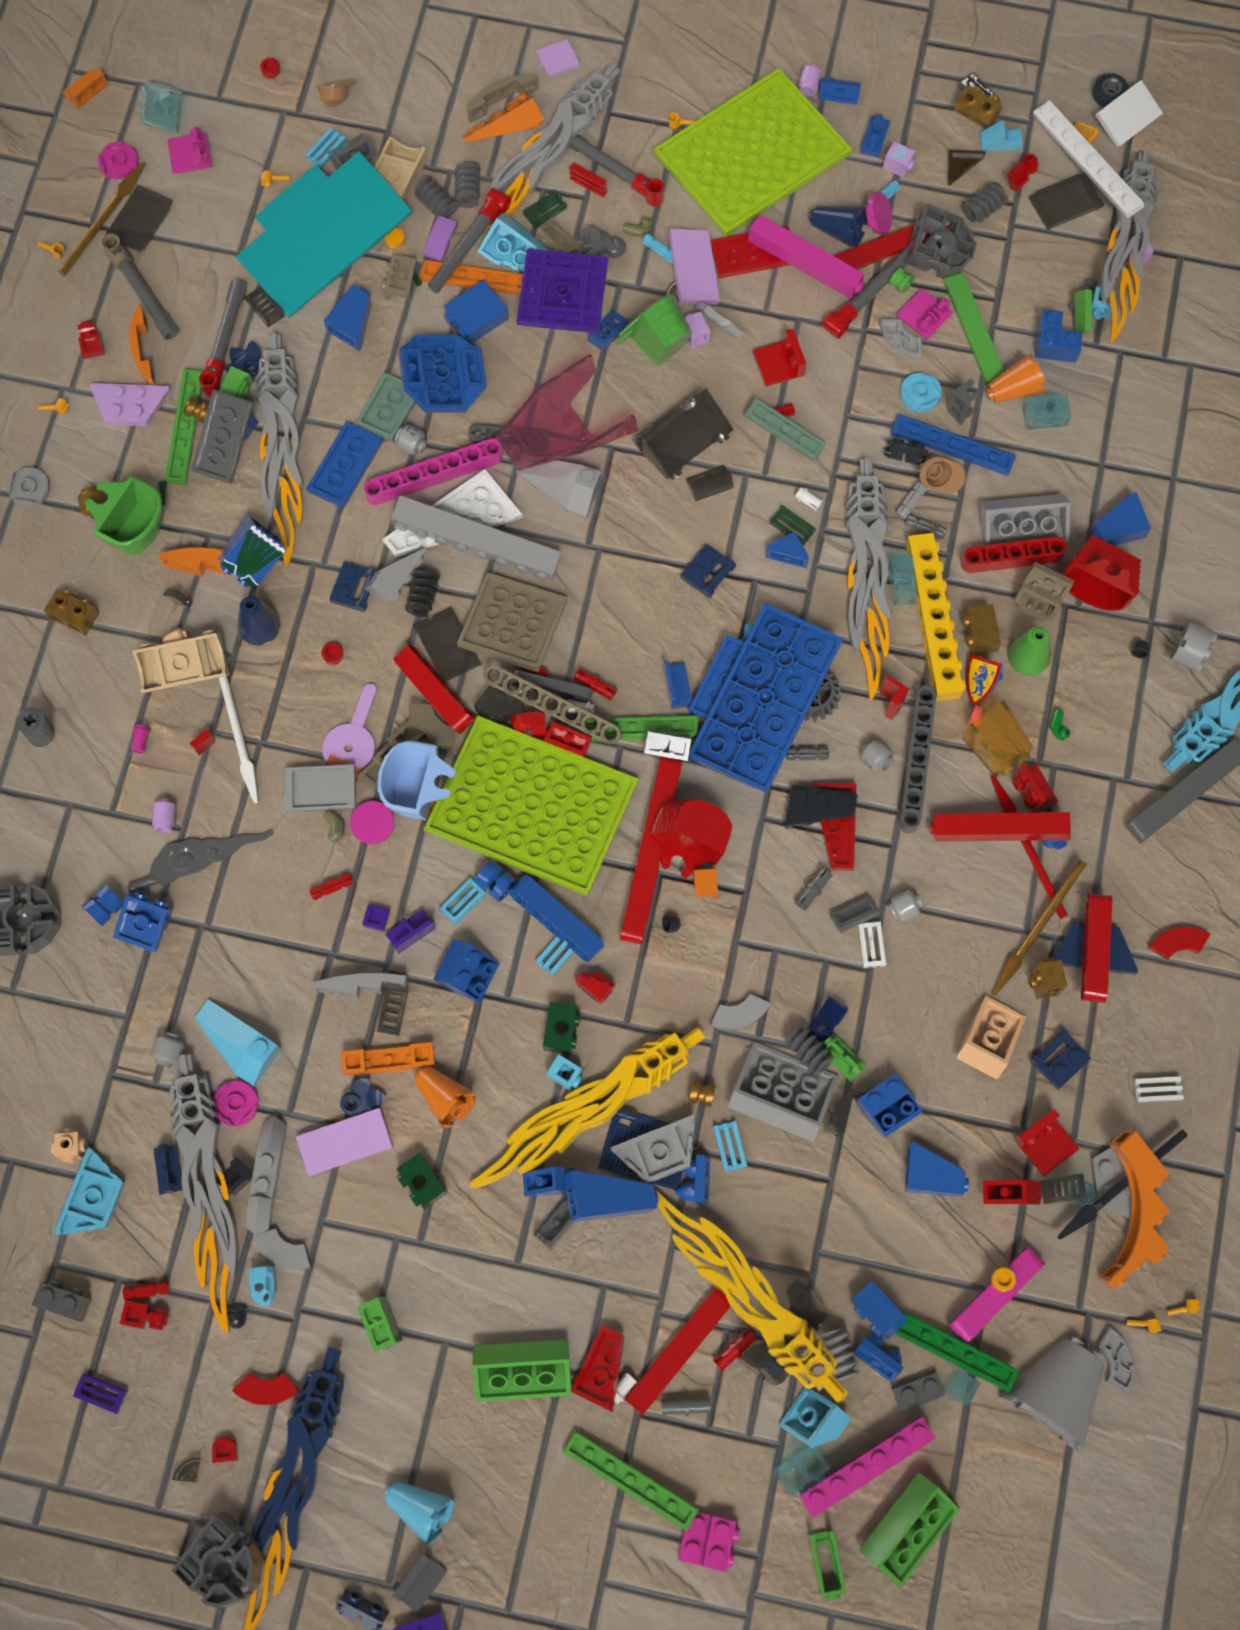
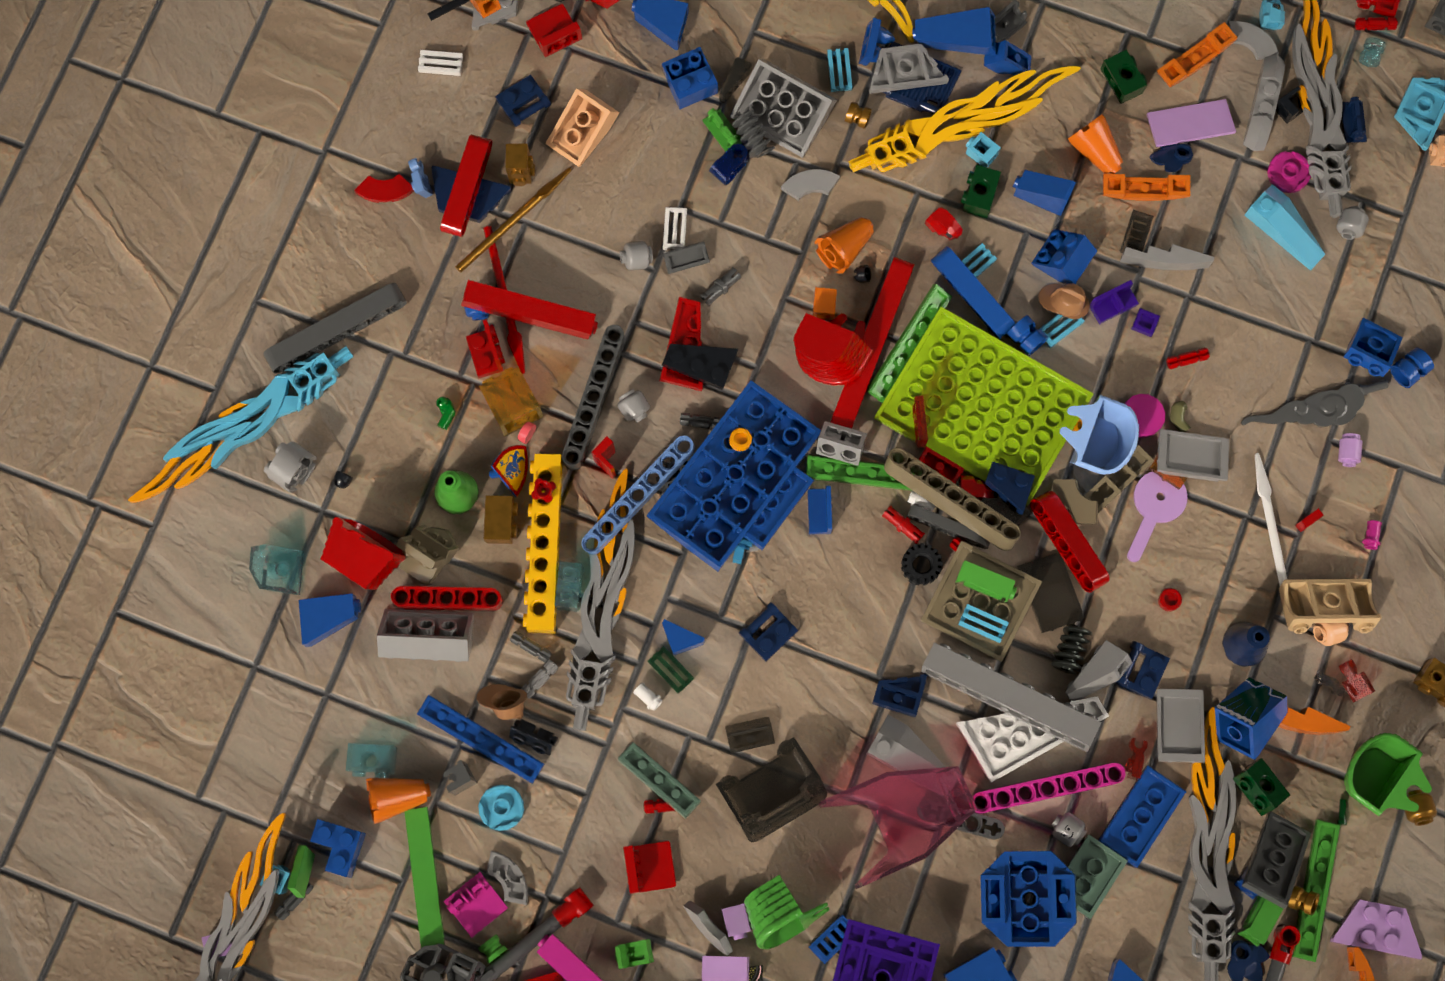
camera: 170 degrees left, 5 degrees up
(150, 1252) = (1372, 50): none -> clear light blue wheel
(152, 599) = (1357, 684): none -> clear red plate
(228, 494) = (1261, 787): none -> dark green brick
(315, 541) = (1180, 725): none -> light grey piece
(344, 1218) = (1198, 55): none -> orange slope
(355, 502) = (1135, 764): none -> clear red plate
(461, 925) = (1065, 300): none -> medium nougat piece
(495, 1034) = (1044, 190): none -> blue slope
(496, 726) = (1010, 484): none -> dark blue wing
(509, 595) = (1001, 631): none -> medium azure tile
(510, 630) = (986, 581): none -> bright green window
(573, 661) = (925, 551): none -> black tyre
(577, 532) = (900, 694): none -> dark blue wing
(594, 767) = (920, 422): none -> clear red tile
(594, 904) = (908, 341): none -> bright green tile
(693, 949) = (844, 243): none -> orange cone
(766, 727) = (740, 439): none -> light orange tile
(779, 293) = (634, 954): none -> bright green bracket
(853, 675) = (627, 498): none -> medium blue beam
(948, 649) = (543, 484): none -> red plate
(1144, 953) = (420, 181): none -> medium blue plate
(1179, 557) = (277, 568): none -> clear light blue slope

